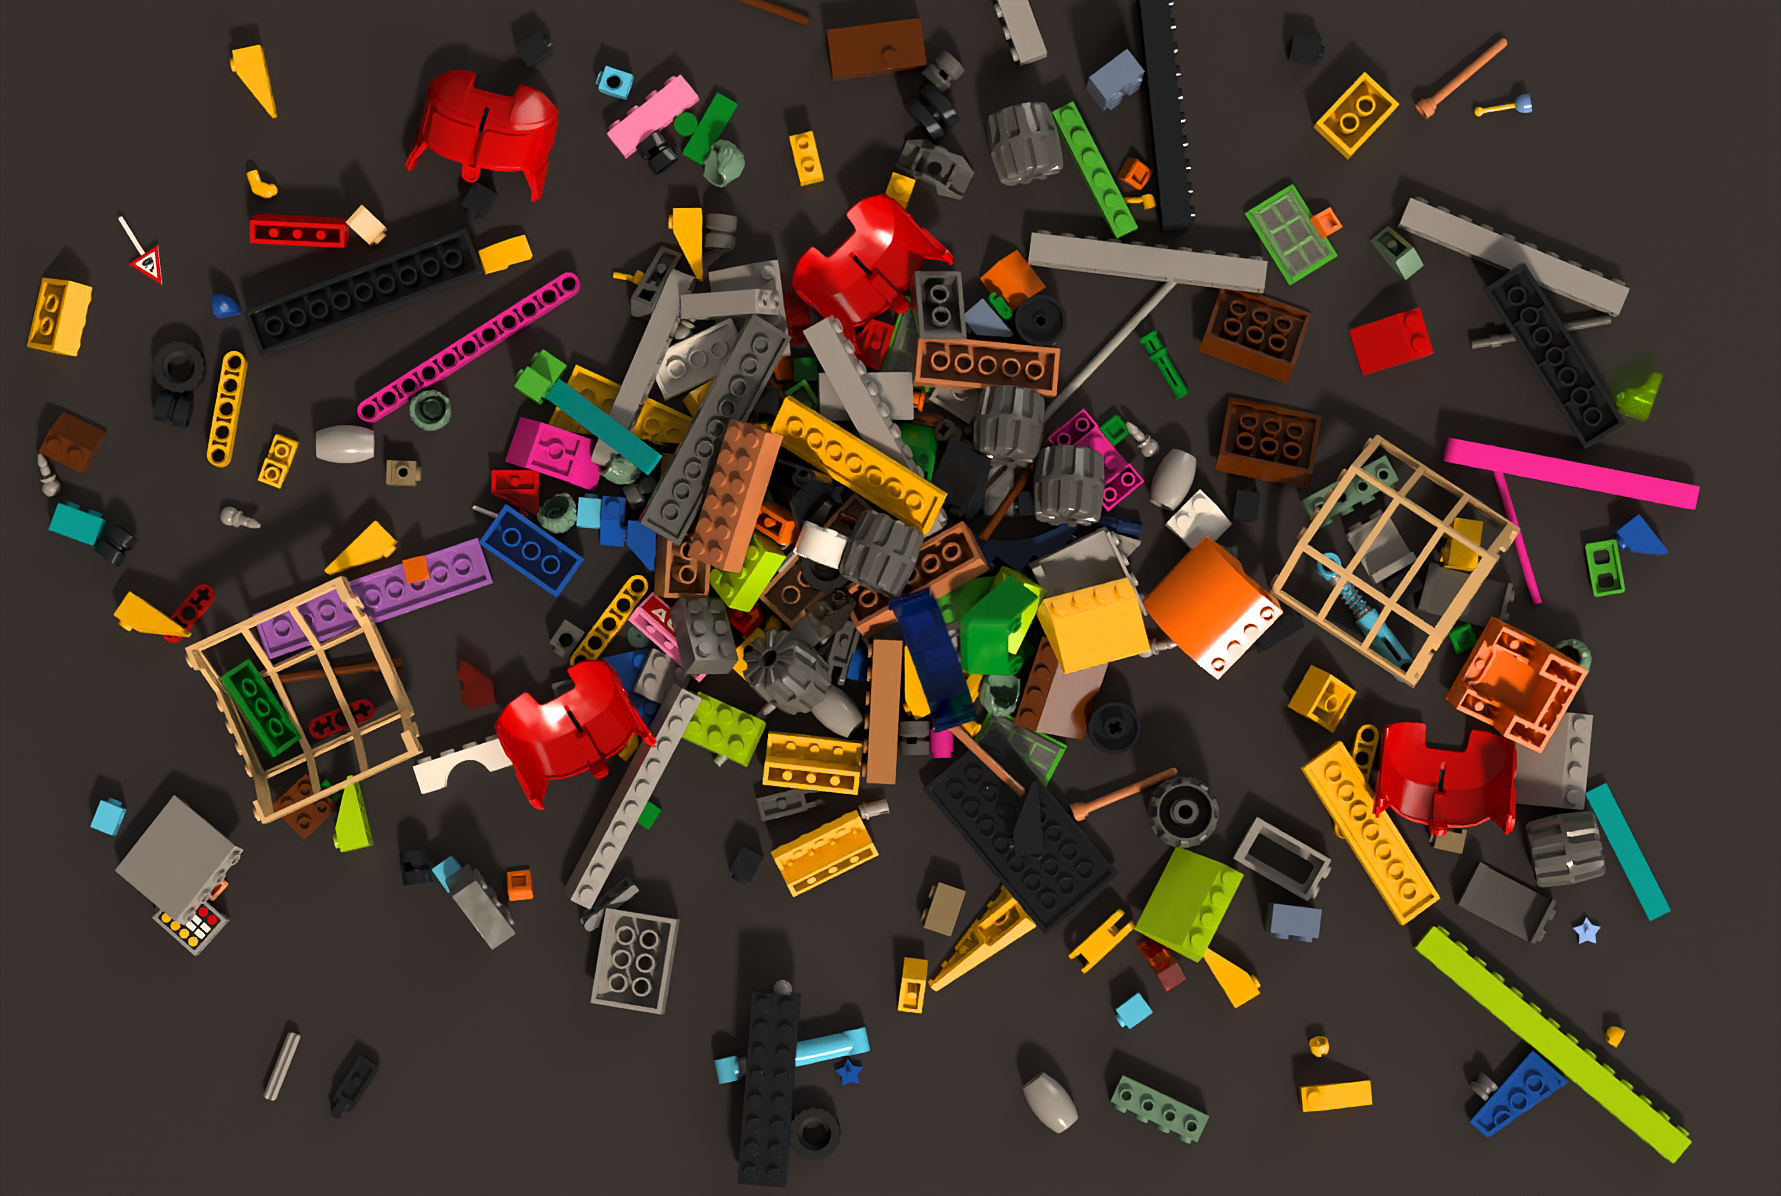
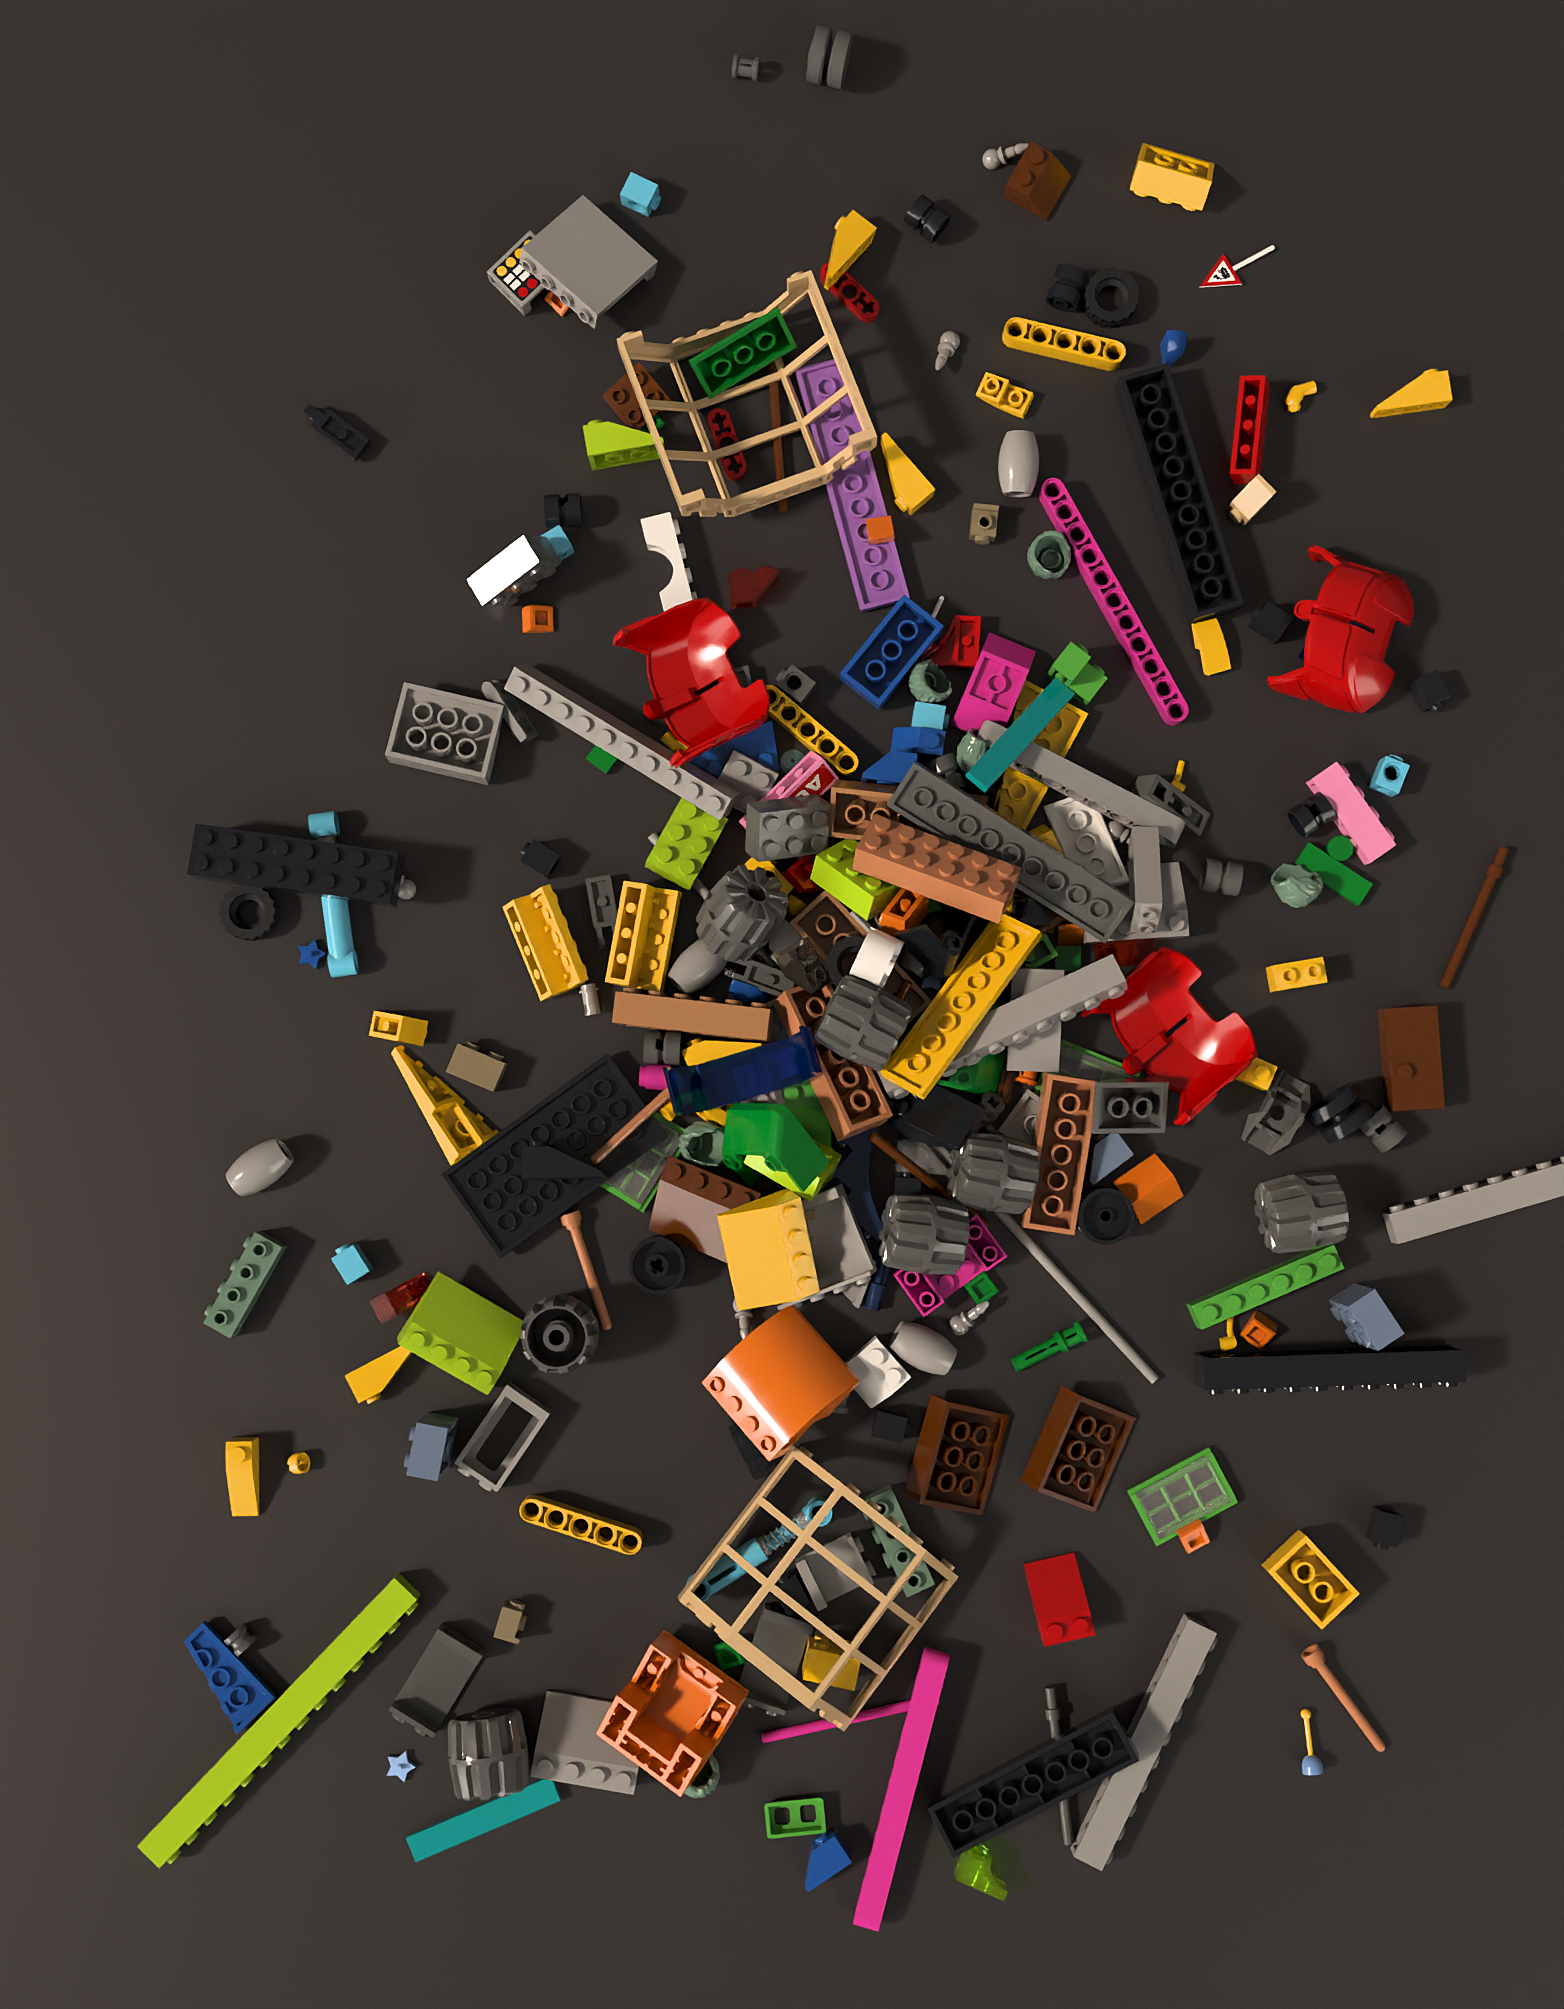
camera: 90 degrees right, 0 degrees up
(77, 524) = (951, 180): teal brick -> none
(281, 1066) = (365, 358): light grey axle -> none
(688, 230) = (1226, 843): yellow slope -> none
(874, 344) = (1090, 1034): red wing -> none
(999, 306) = (1123, 1172): green piece -> none
(1102, 940) = (430, 1235): yellow piece -> none
(1146, 262) = (1161, 1338): light grey brick -> none
(1322, 698) = (674, 1493): yellow slope -> none
(1371, 838) = (523, 1537): yellow plate -> none
(1397, 252) = (1156, 1613): sand green slope -> none
(1475, 782) = (569, 1656): red piece -> none
(1614, 1035) = (284, 1789): yellow hinge -> none

